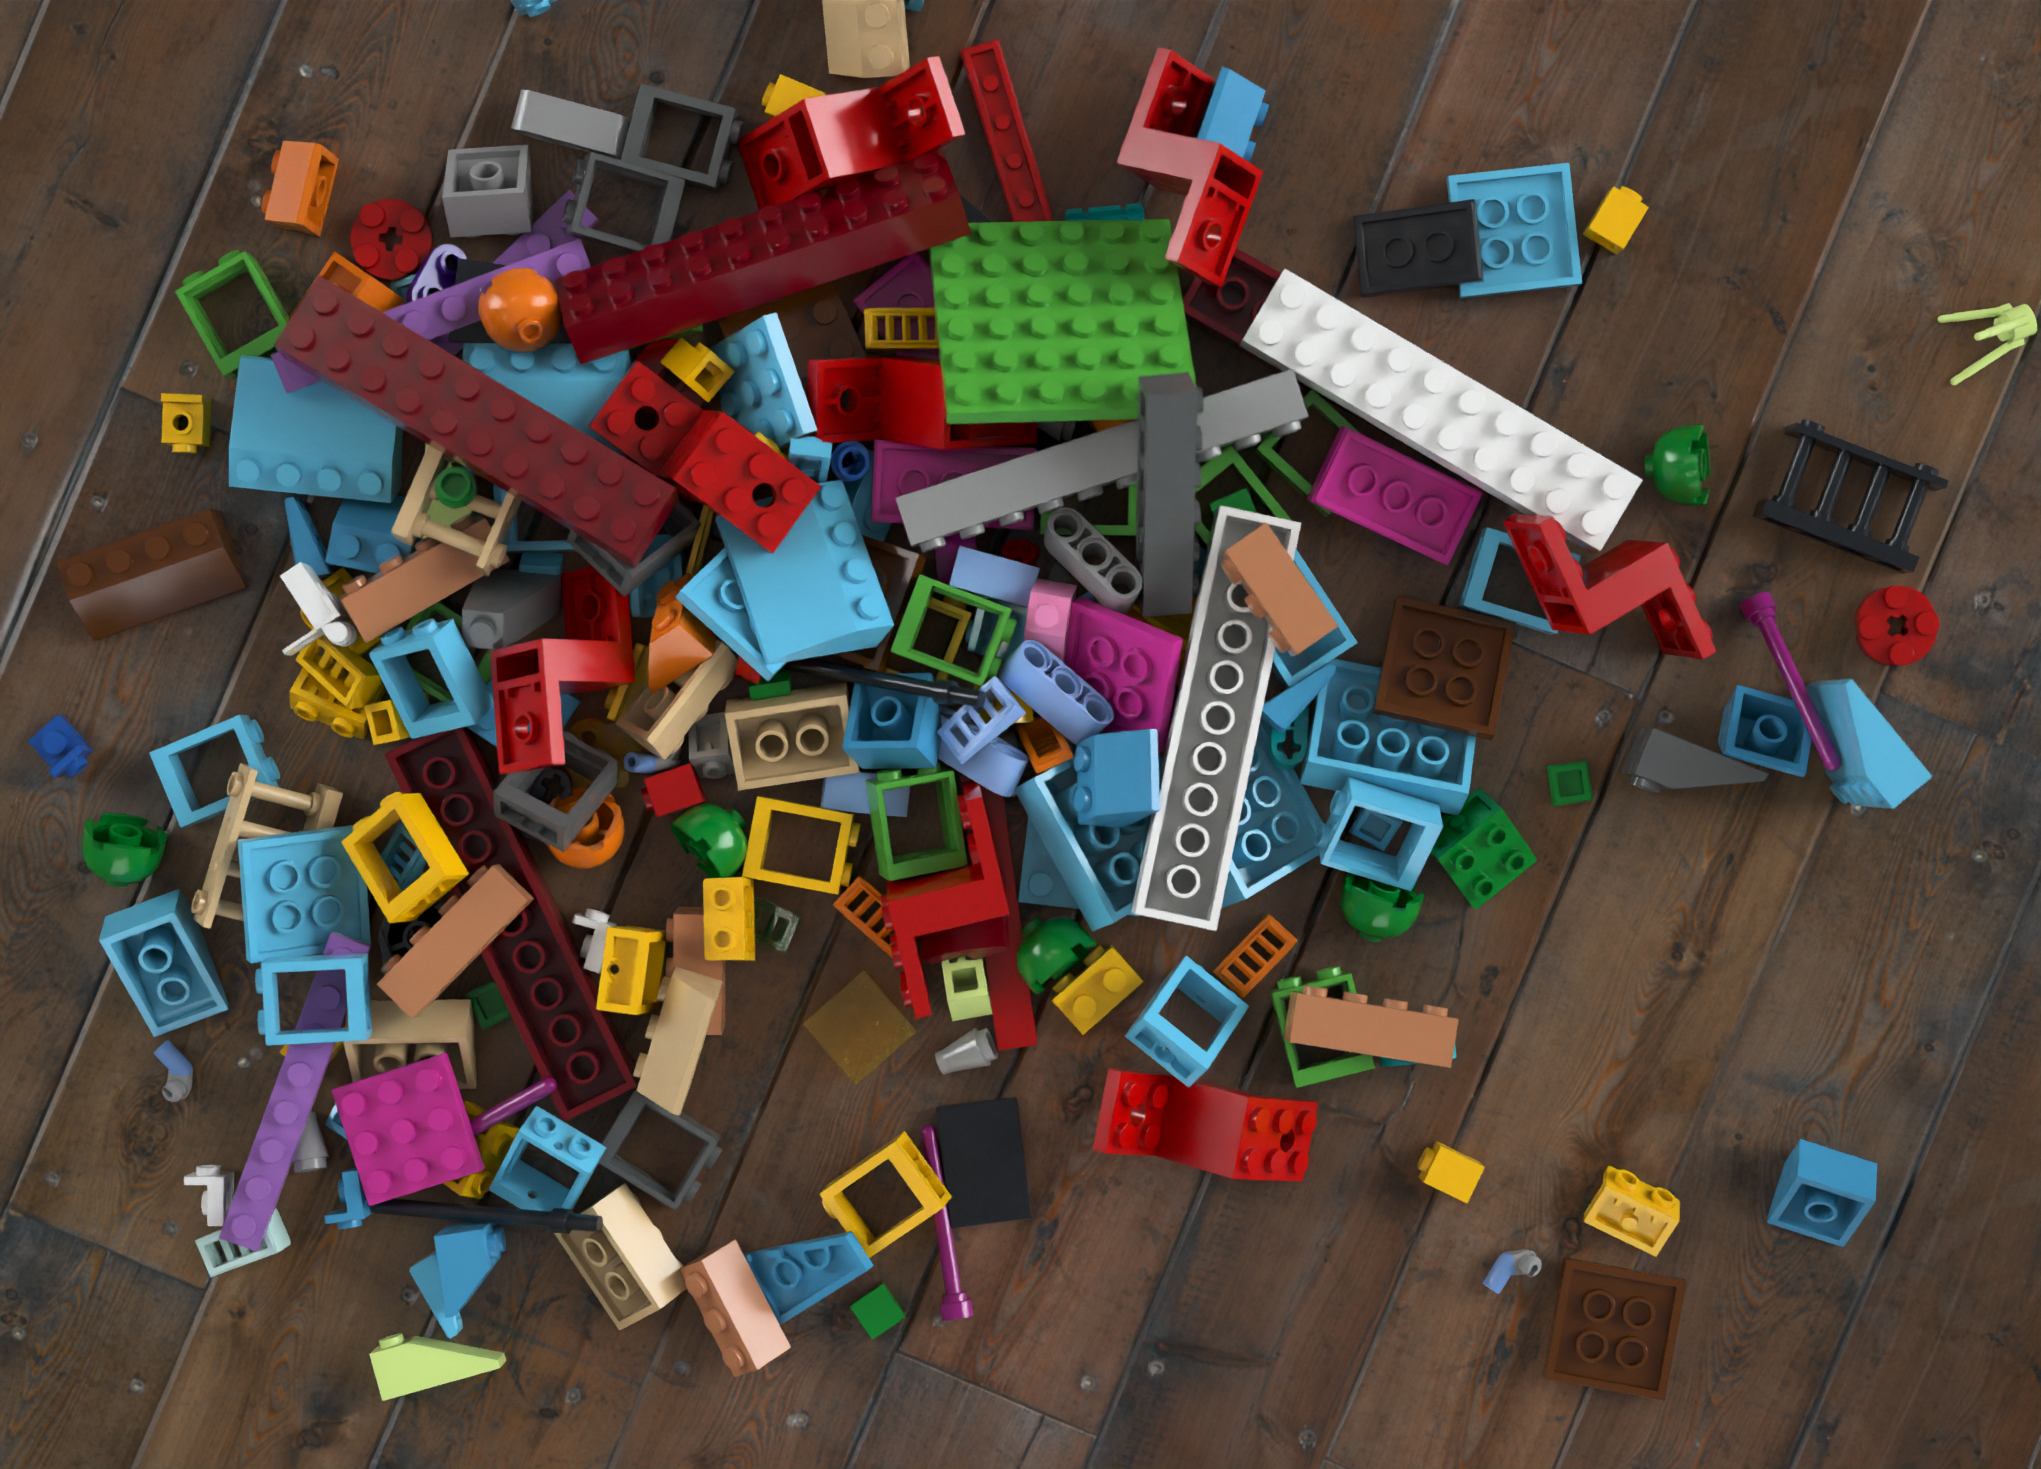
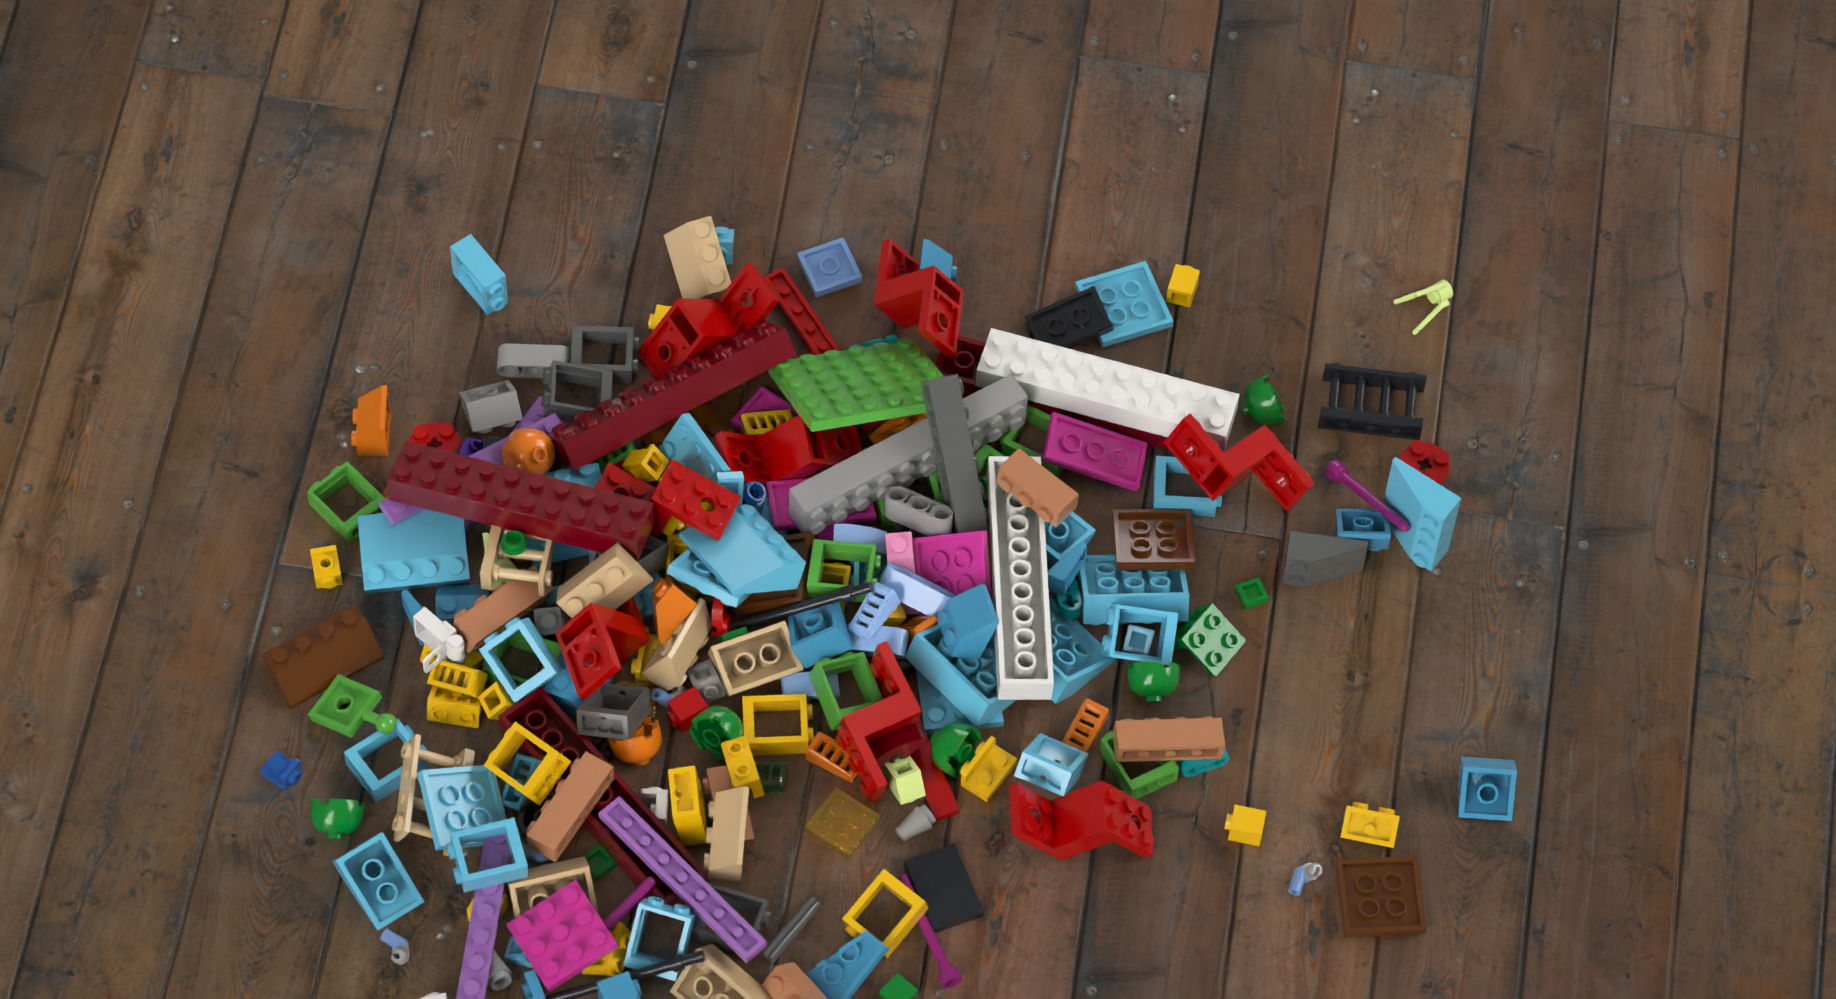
camera: 15 degrees left, 30 degrees down
(194, 672) = (349, 720): none -> bright green plate
(570, 590) = (605, 581): none -> tan slope
(594, 1095) = (682, 879): none -> medium lavender plate
(746, 1177) = (791, 929): none -> dark grey axle
(1070, 57) = (829, 267): none -> medium blue plate

